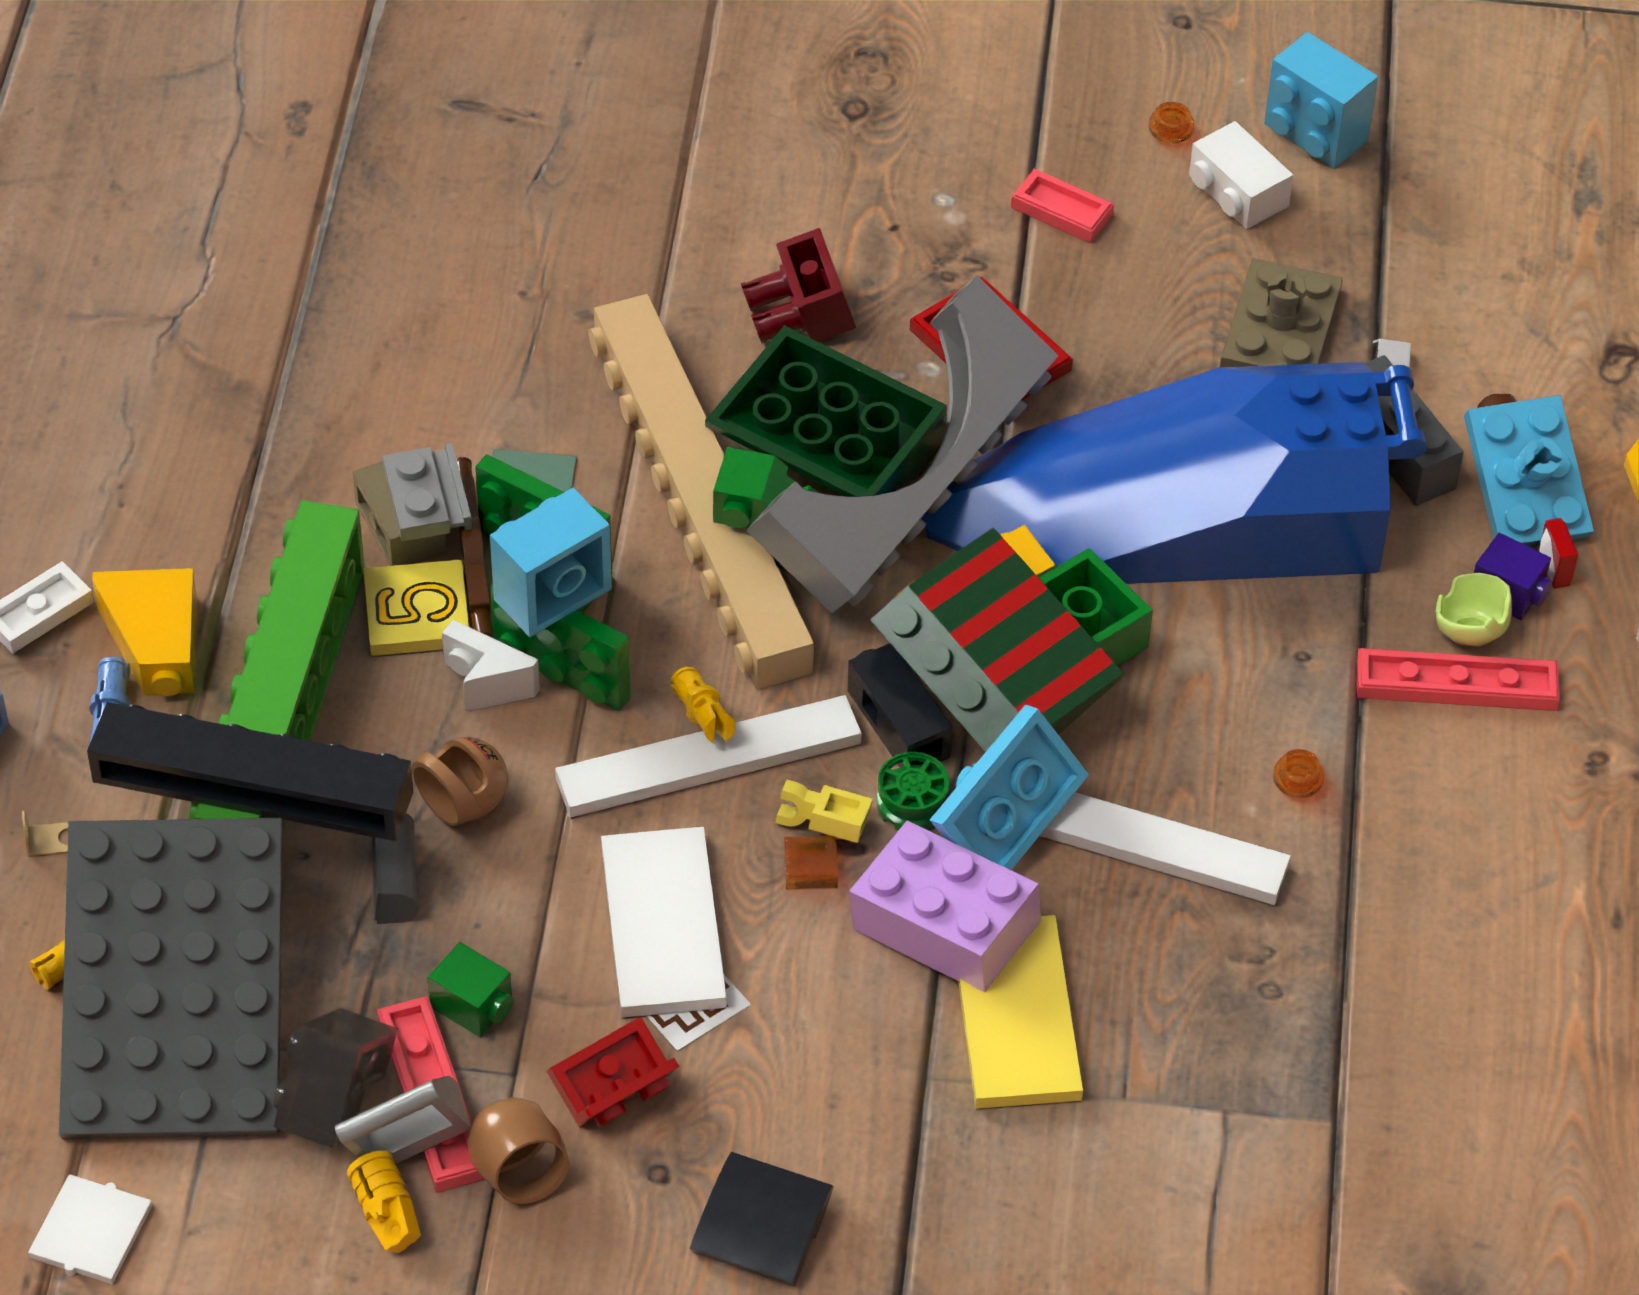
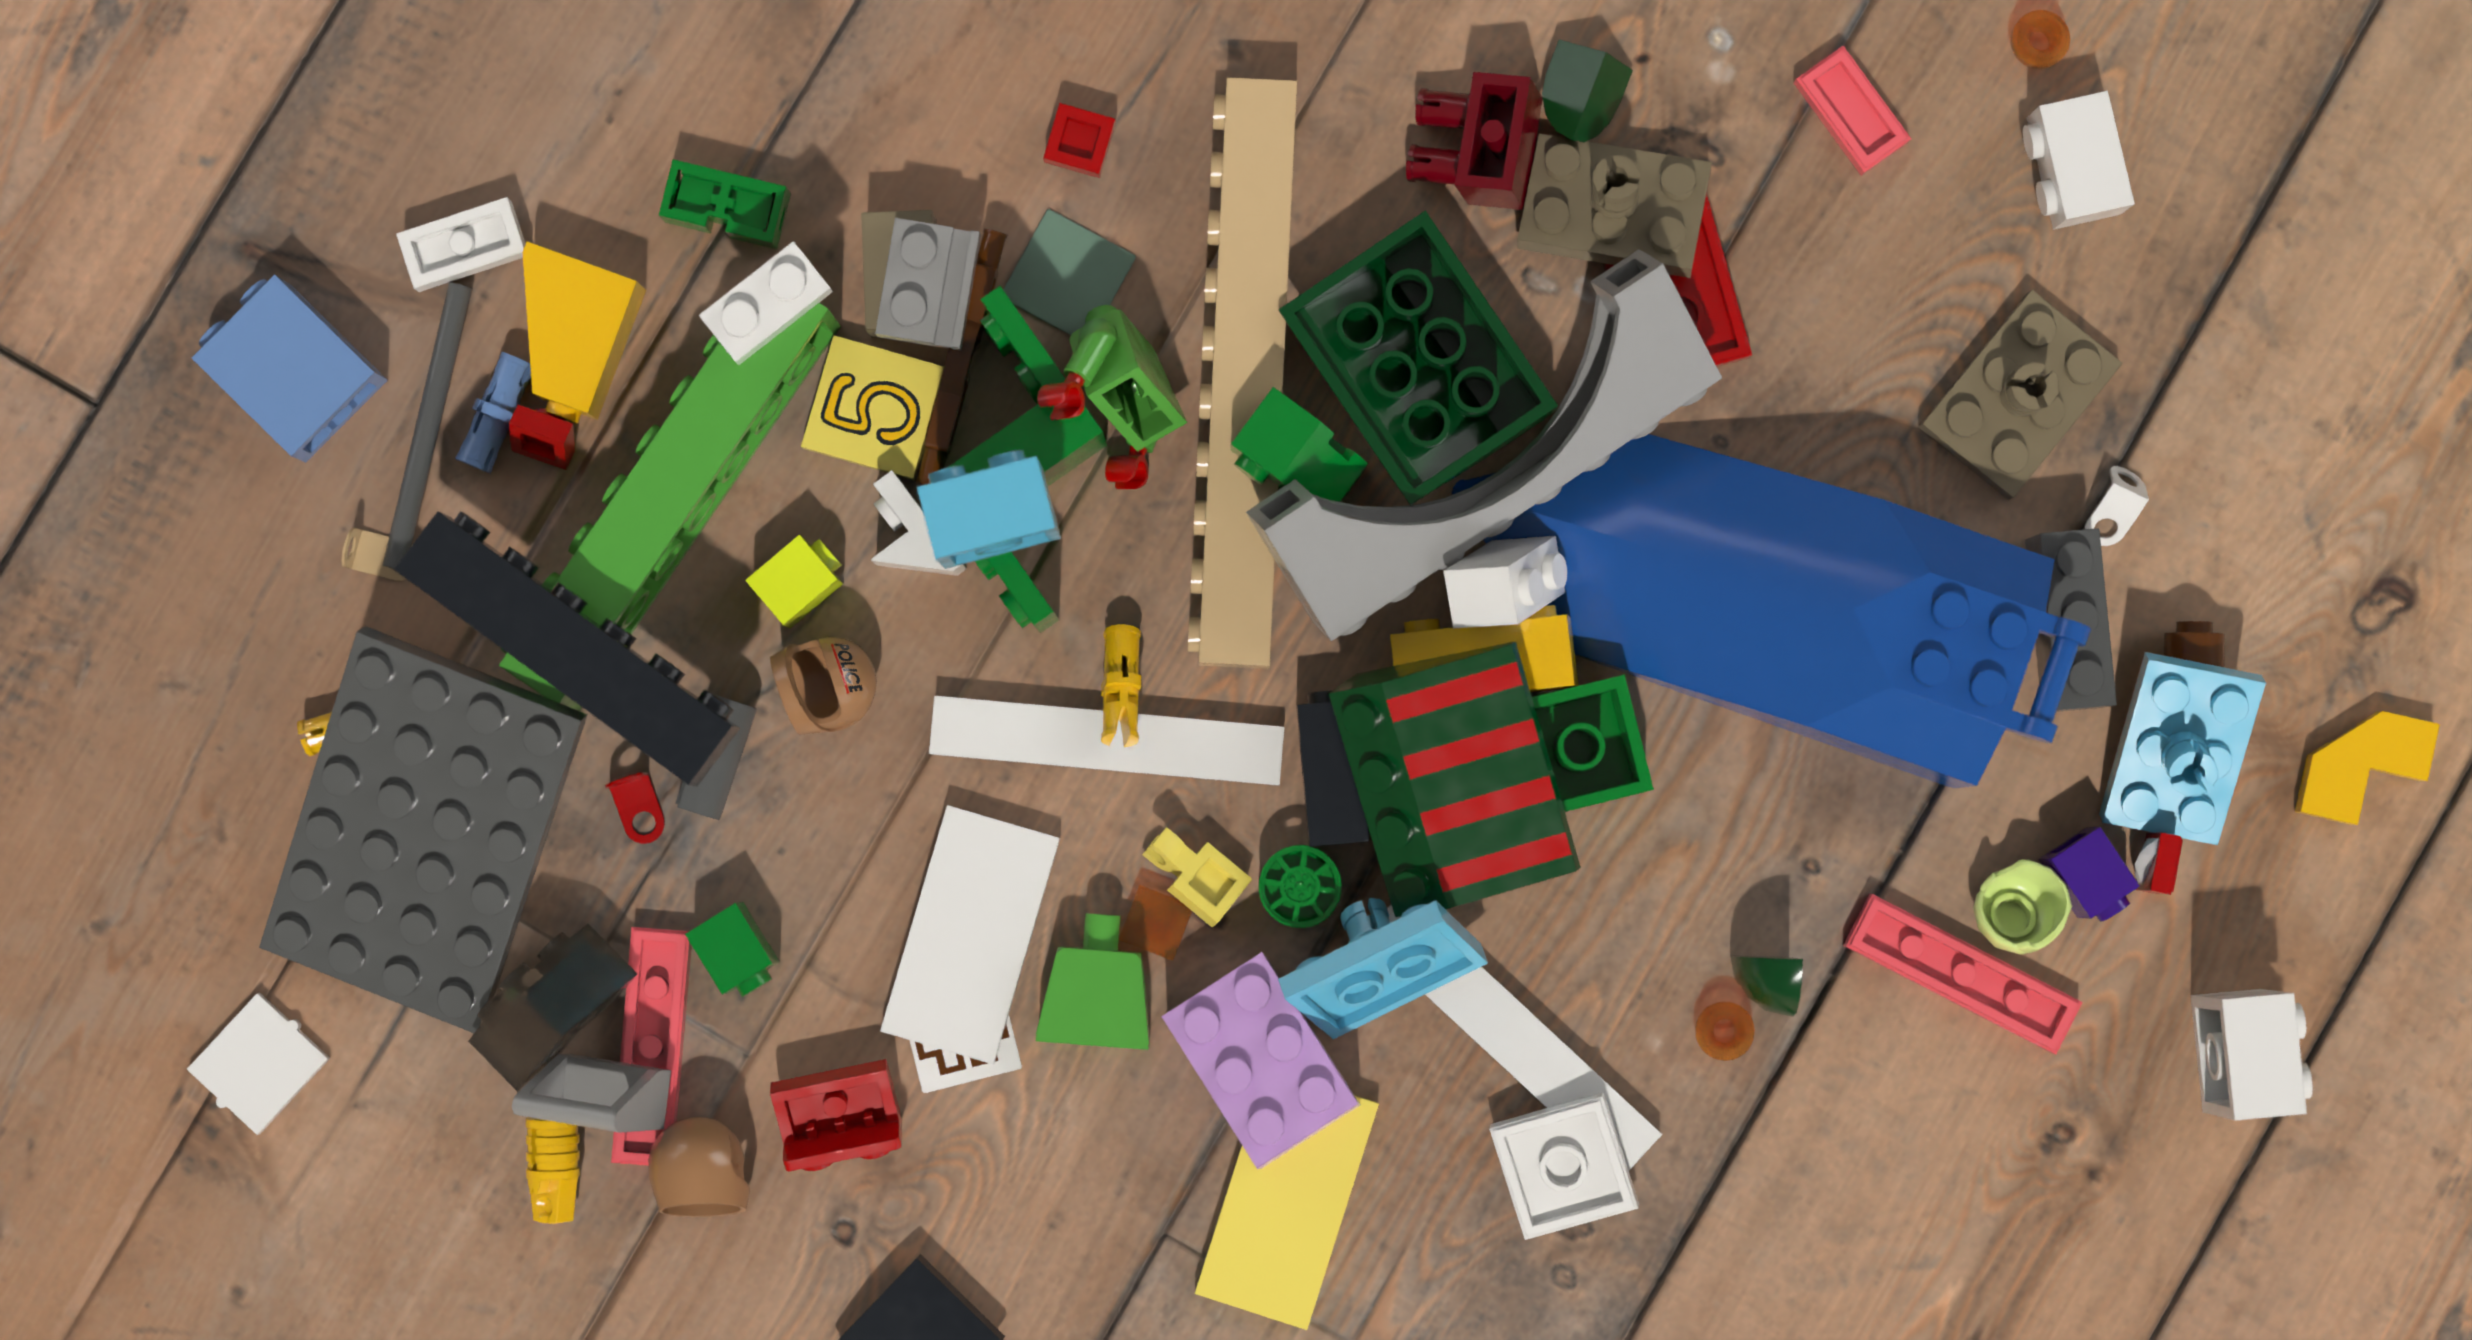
camera: 25 degrees right, 35 degrees up
(55, 734) = (427, 424): none -> dark grey piece
(157, 693) = (542, 436): none -> red plate
(236, 516) = (725, 199): none -> green piece
(309, 515) = (765, 303): none -> white plate
(336, 927) = (637, 795): none -> red piece
(407, 724) = (796, 579): none -> neon yellow brick
(498, 393) = (1079, 140): none -> red plate
(634, 514) = (1124, 384): none -> bright green torso
(789, 917) = (1096, 992): none -> bright green torso
(860, 245) = (1583, 90): none -> dark green brick
(903, 302) = (1612, 201): none -> dark tan plate
(963, 517) = (1505, 582): none -> white brick
(1226, 901) = (1564, 1166): none -> white tile
(1313, 718) = (1770, 981): none -> dark green brick
(1320, 100) = (2225, 99): medium azure brick -> none

